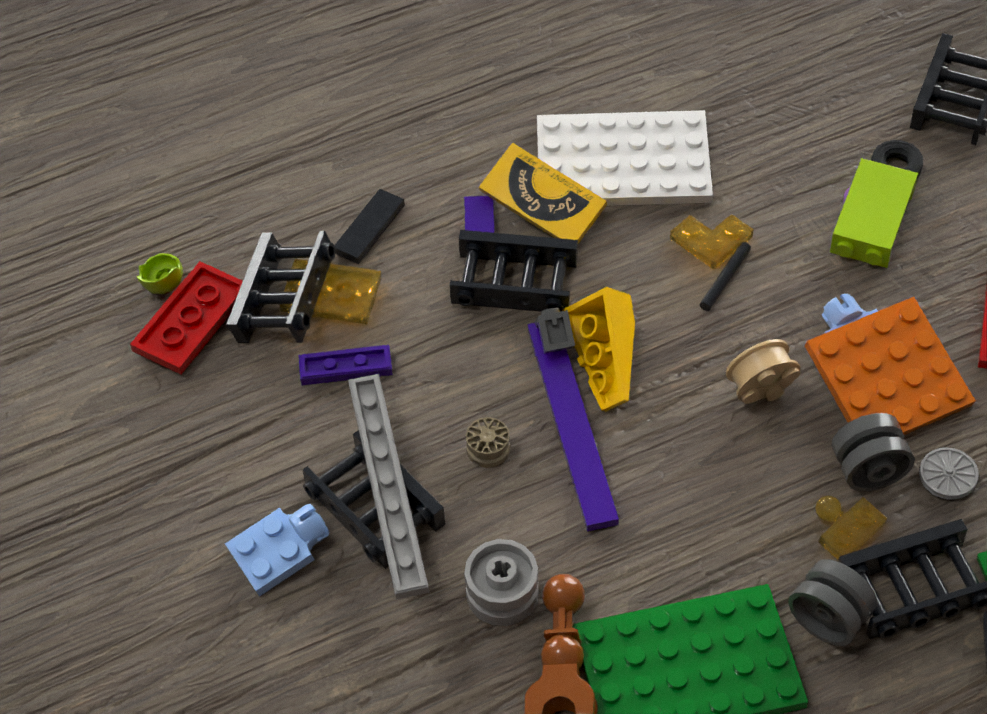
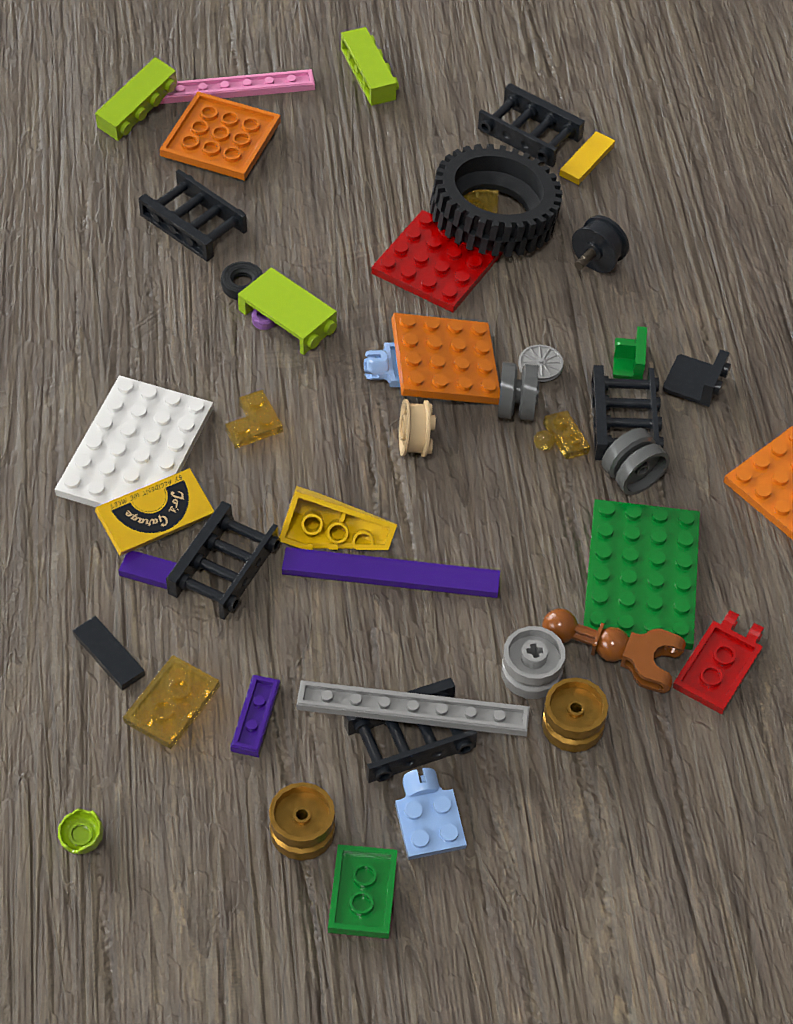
camera: 75 degrees left, 0 degrees up
(172, 516) = (362, 891): none -> green plate
(188, 318) = (144, 822): red plate -> none
(226, 435) = (302, 821): none -> pearl gold wheel
(263, 272) = (153, 760): black fence -> none
(447, 641) = (574, 714): none -> pearl gold wheel
(479, 442) = (389, 633): dark tan wheel -> none
(555, 330) = (306, 547): dark grey bracket -> none
(725, 276) = (296, 425): black bar -> none

